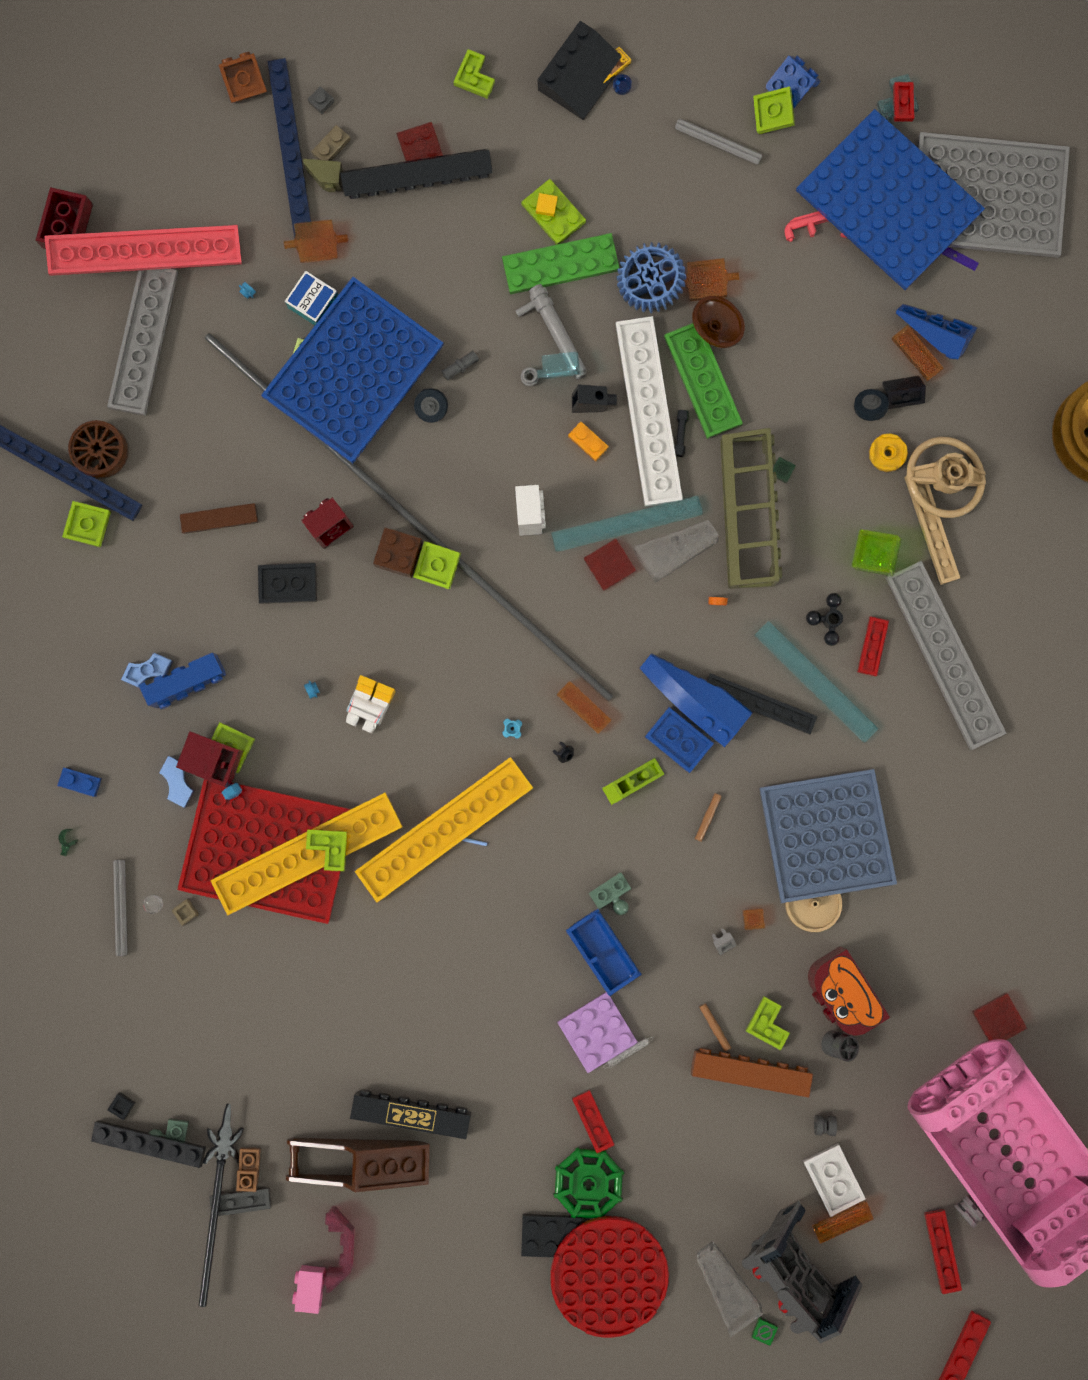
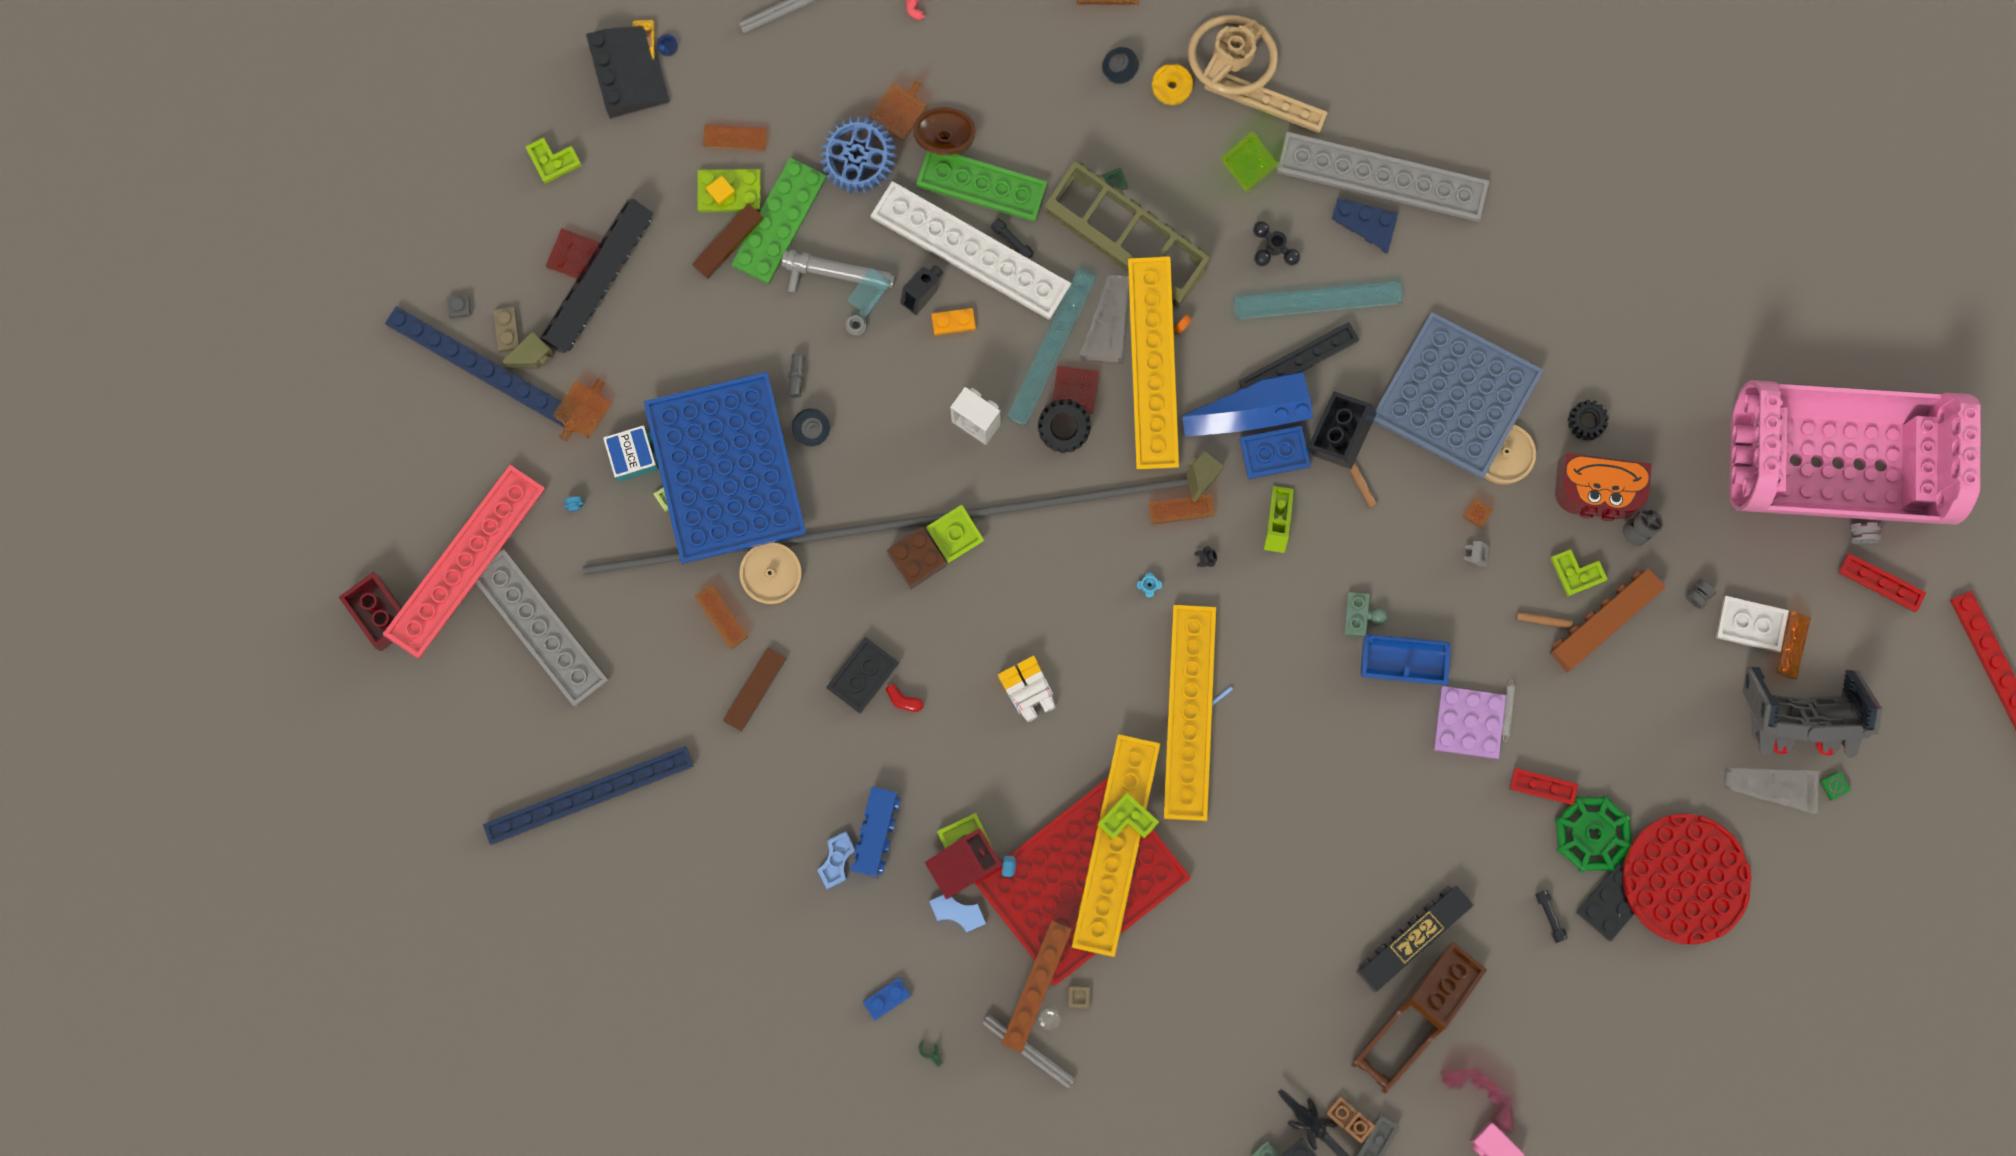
camera: 55 degrees left, 5 degrees down
(86, 524) = (662, 809): lime plate -> none
(91, 454) = (623, 763): reddish brown piece -> none
(163, 878) = (1036, 986): none -> dark orange brick
(242, 77) = (381, 355): dark orange plate -> none
(249, 454) = (721, 617): none -> clear orange plate
(291, 626) = (903, 702): none -> red arm
(307, 462) = (770, 573): none -> tan piece
(311, 689) = (973, 729): dark azure plate -> none
(327, 522) = (842, 594): dark red brick -> none
(497, 1213) = (1544, 898): none -> black bar
(516, 240) = (728, 241): none -> reddish brown tile
(559, 577) = (1064, 444): none -> black tyre
(595, 184) = (735, 137): none -> clear orange plate
(619, 702) = (1202, 474): none -> olive slope
(671, 602) = (1153, 363): none -> yellow plate
(733, 774) = (1342, 430): none -> black brick
(873, 646) = (1326, 229): red tile -> none
(875, 944) = (1599, 414): none -> black tyre
(903, 670) = (1367, 221): none -> dark blue wing
(905, 391) = (1131, 29): black panel -> none
(999, 1018) = (1723, 379): clear red plate -> none

